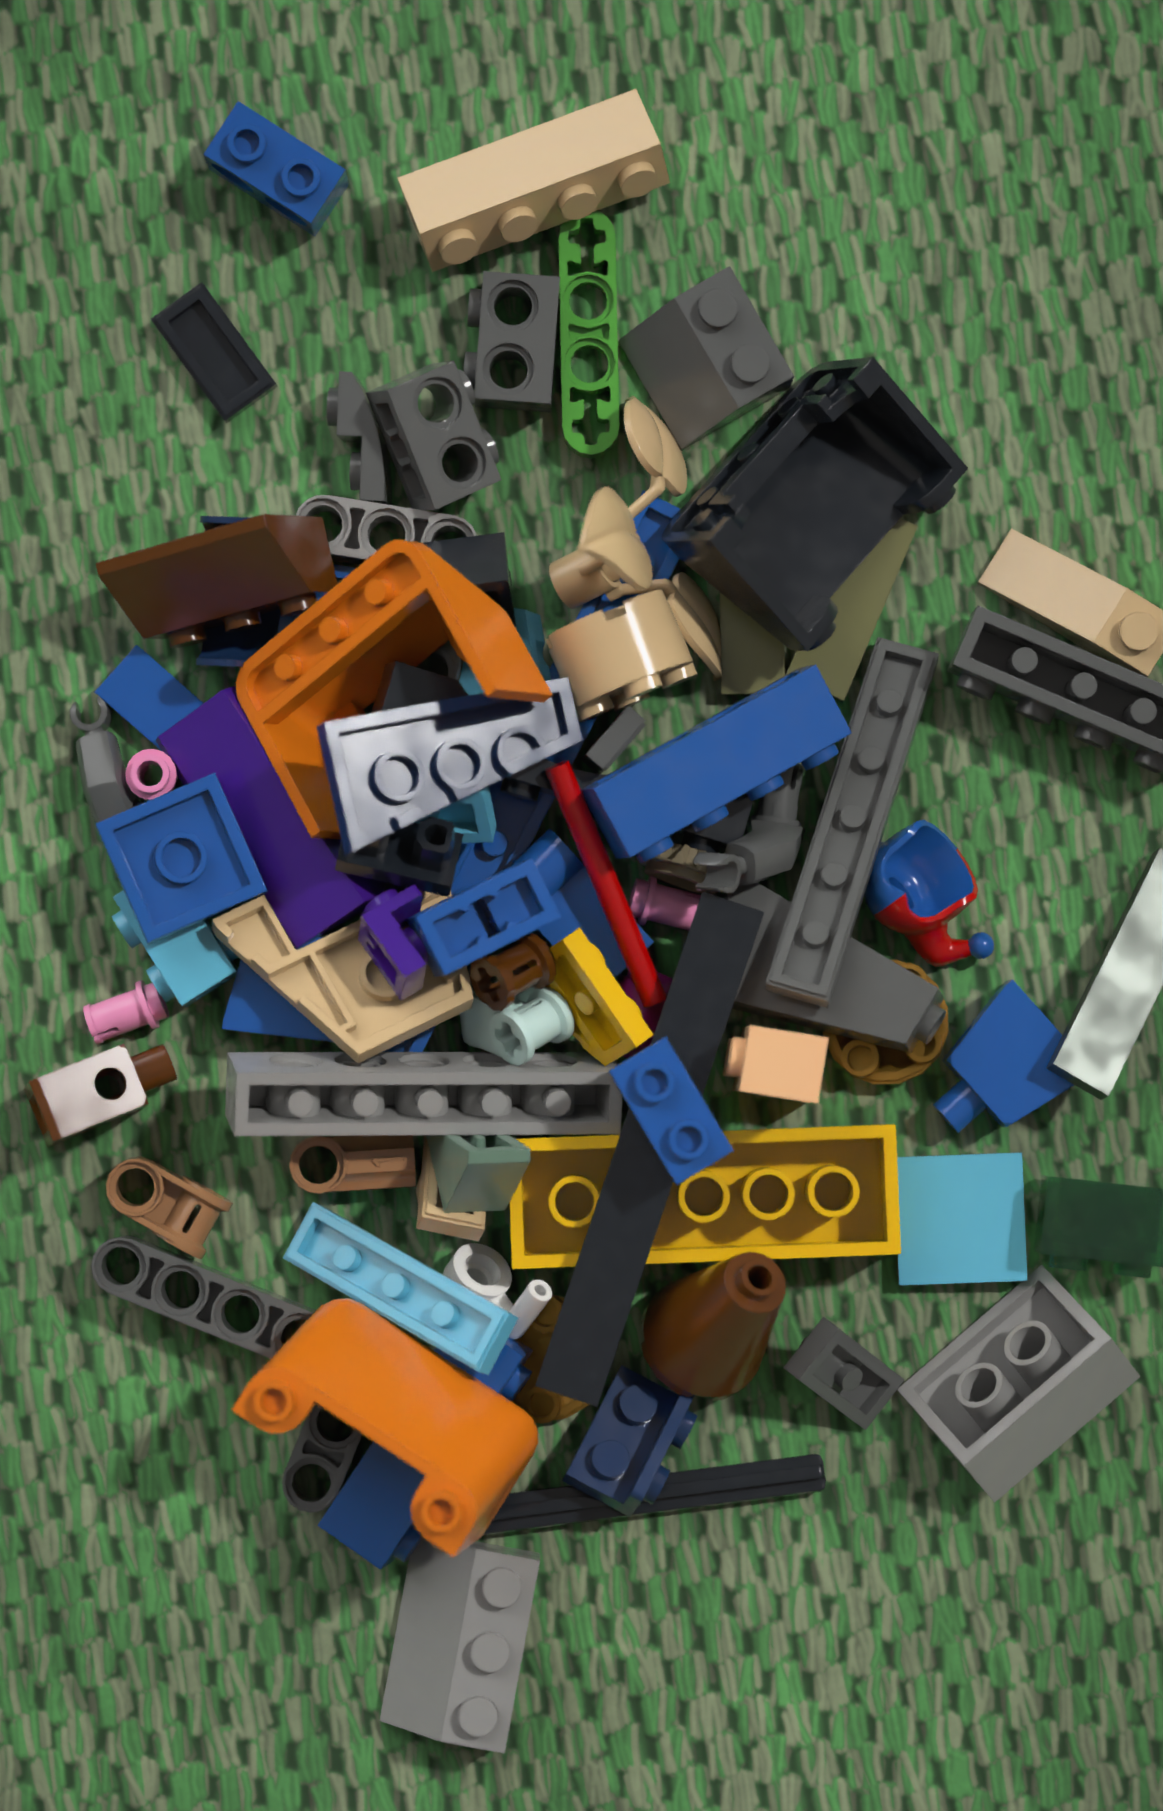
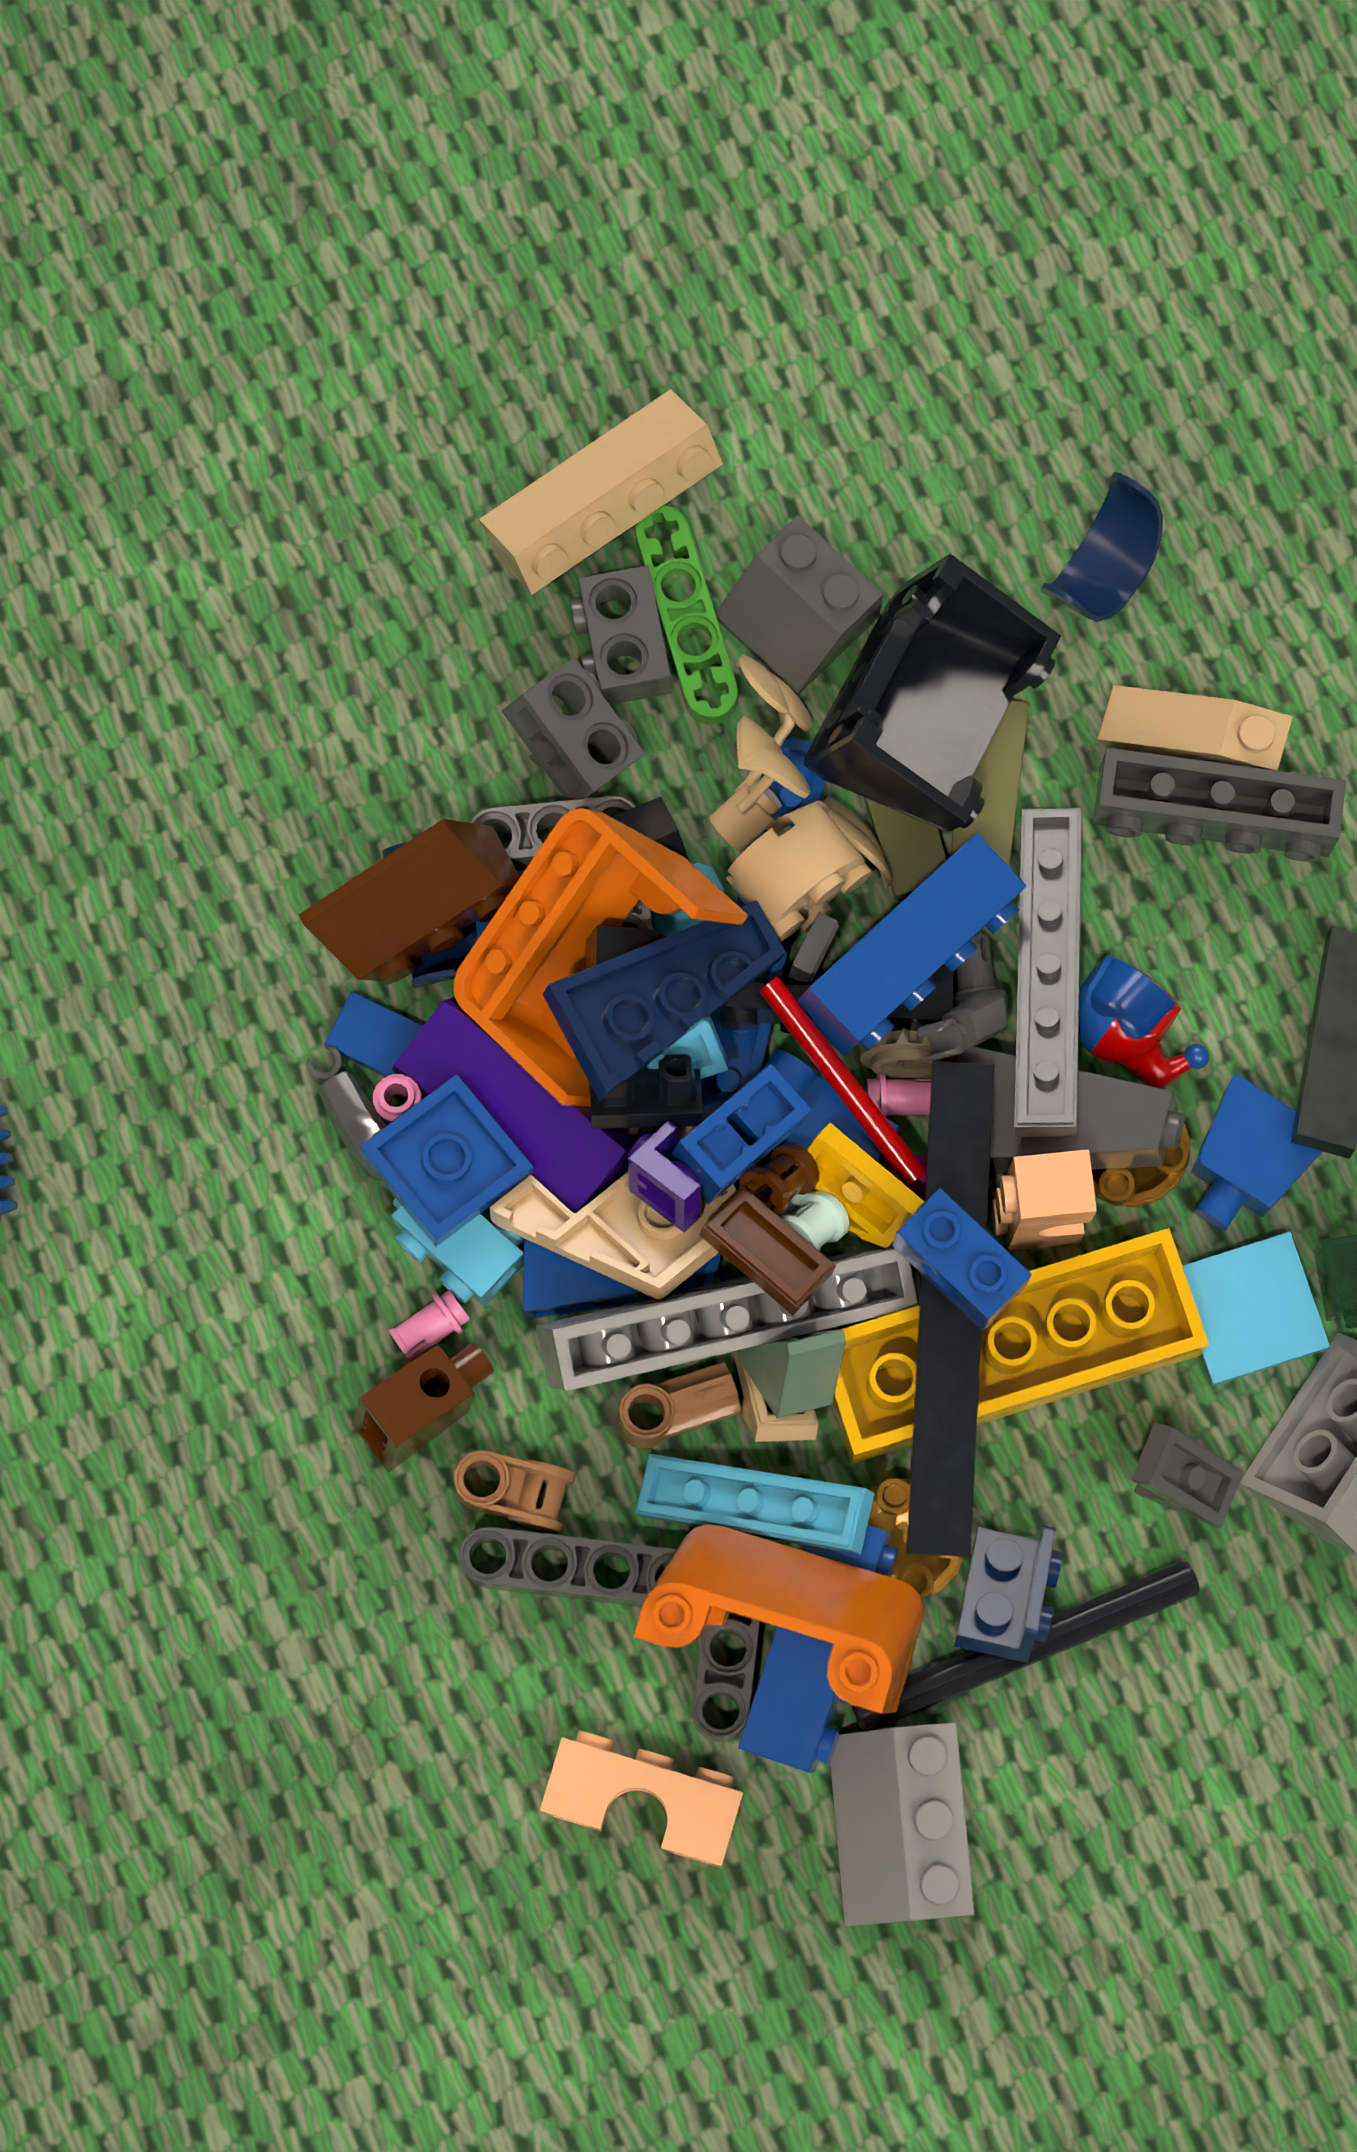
camera: 10 degrees left, 10 degrees down
(214, 352) = (353, 718): black tile -> none
(262, 1567) = (591, 1777): none -> light nougat arch
(276, 168) = (368, 541): blue brick -> none
(356, 423) = (502, 746): dark grey slope -> none
(479, 1043) = (767, 1250): none -> reddish brown tile
(490, 1276) = (832, 1469): white plate -> none
(713, 1326) = (1057, 1456): reddish brown cone -> none
(1044, 394) = (1113, 553): none -> dark blue piece

